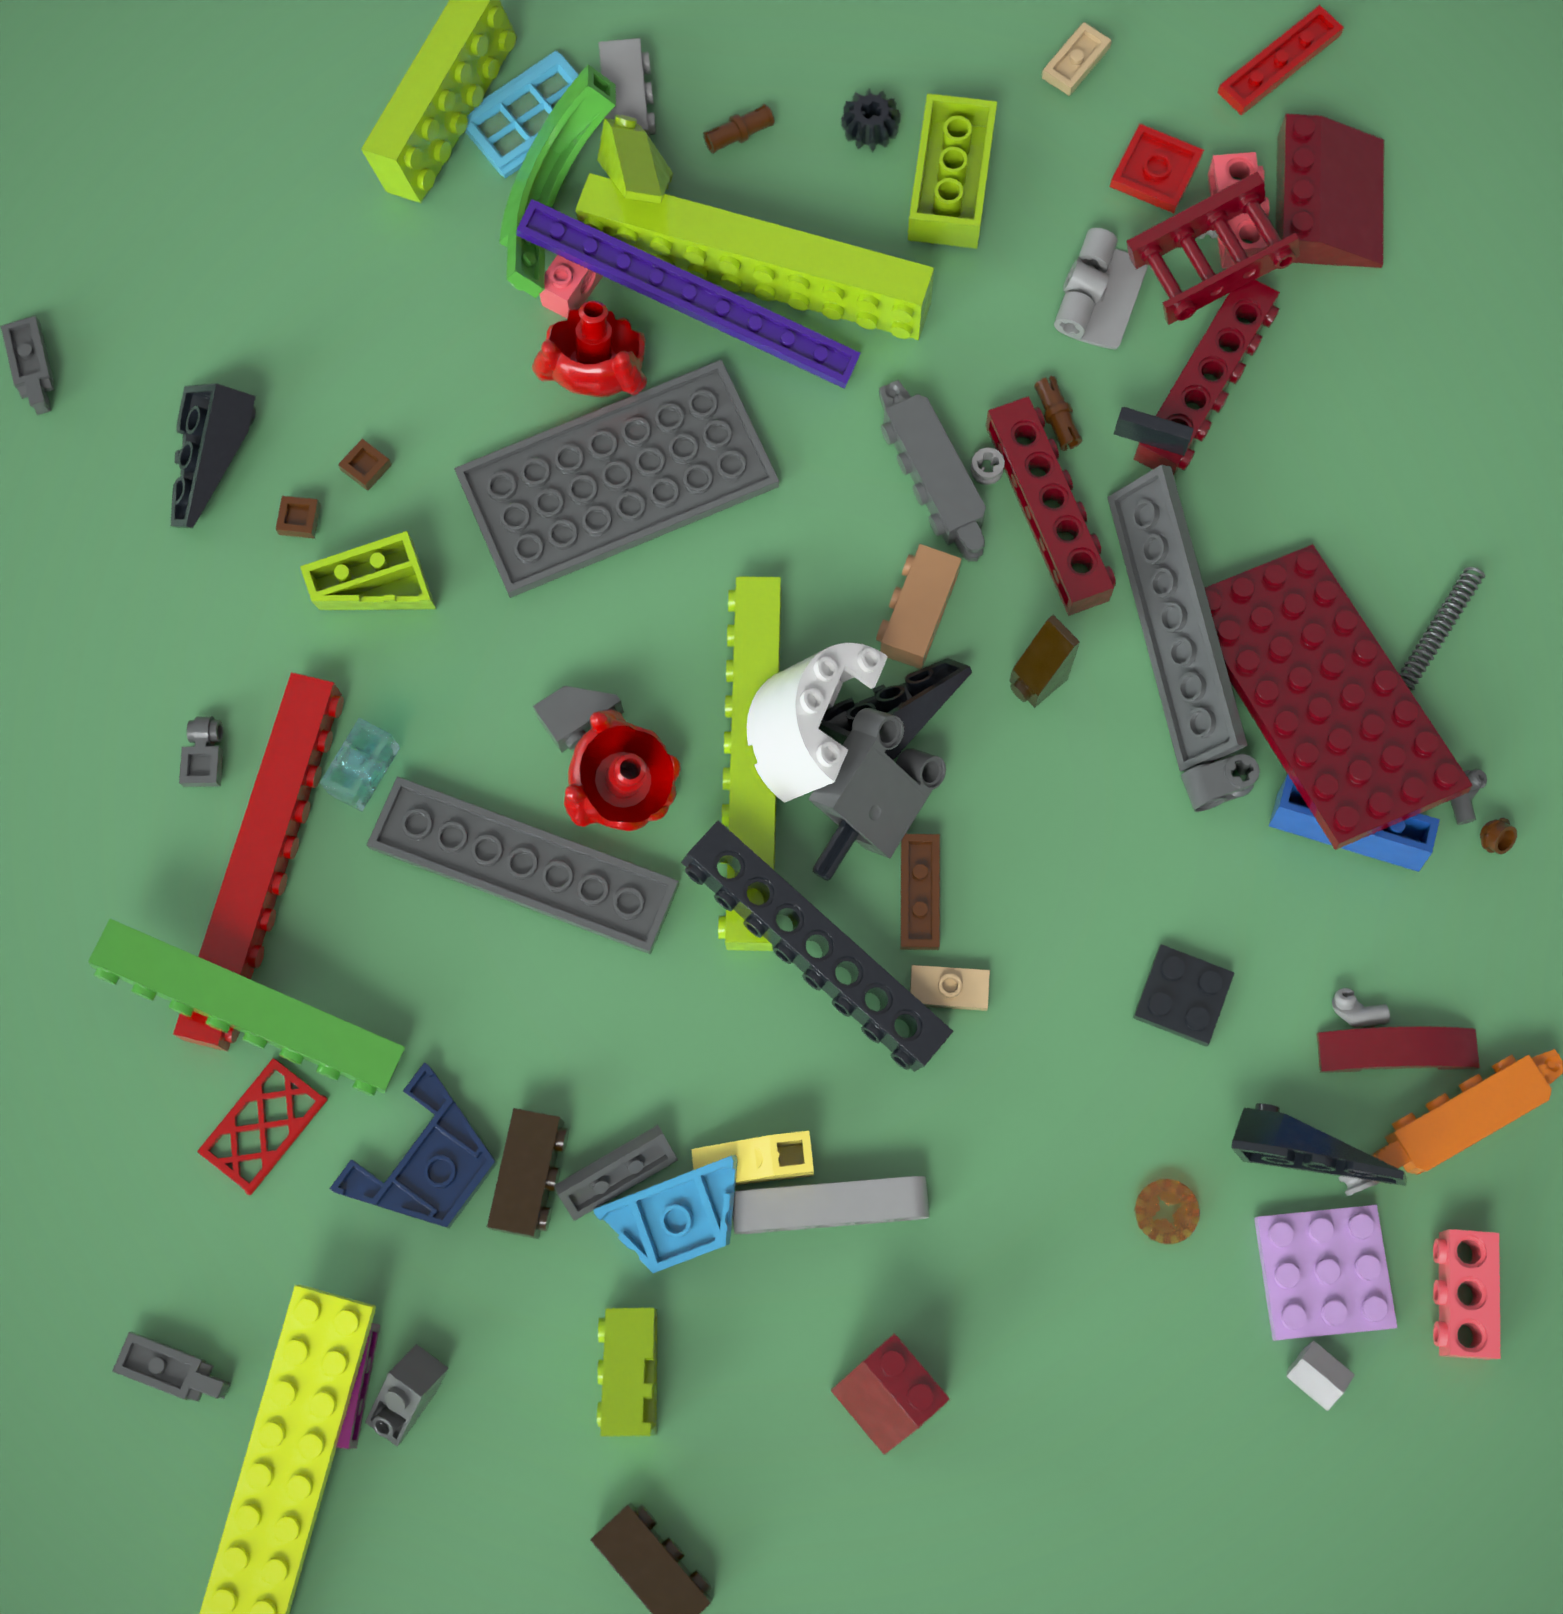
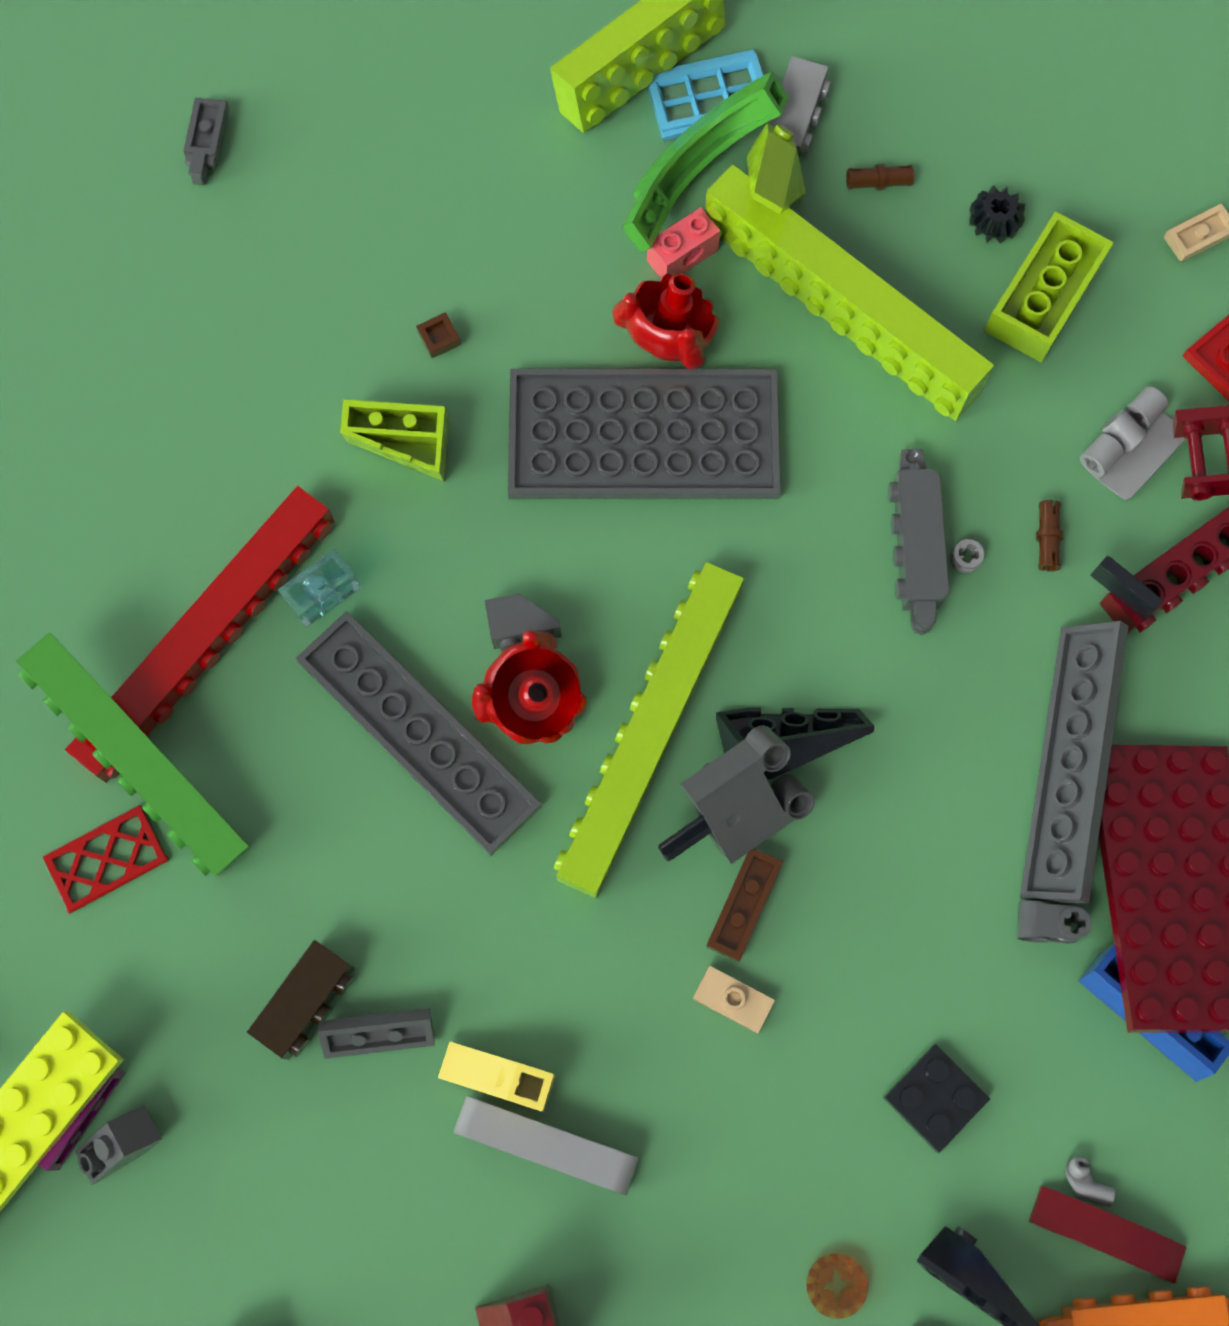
camera: 20 degrees right, 0 degrees up
(203, 763) = (194, 530): dark grey plate -> none
(213, 428) = (329, 252): black wedge -> none
(298, 517) = (364, 356): reddish brown plate -> none
(437, 1171) = (230, 963): dark blue wing -> none
(628, 1372) = (308, 1215): lime wedge -> none
(677, 1216) = (411, 1096): dark azure wing -> none
(687, 293) = (772, 301): dark purple plate -> none
(787, 713) = (697, 700): white cylinder -> none
(918, 605) = (853, 653): medium nougat brick -> none
(926, 1030) = (695, 1030): black brick -> none
(1044, 663) = (940, 752): dark brown slope -> none
(1075, 589) = (997, 698): dark red brick -> none

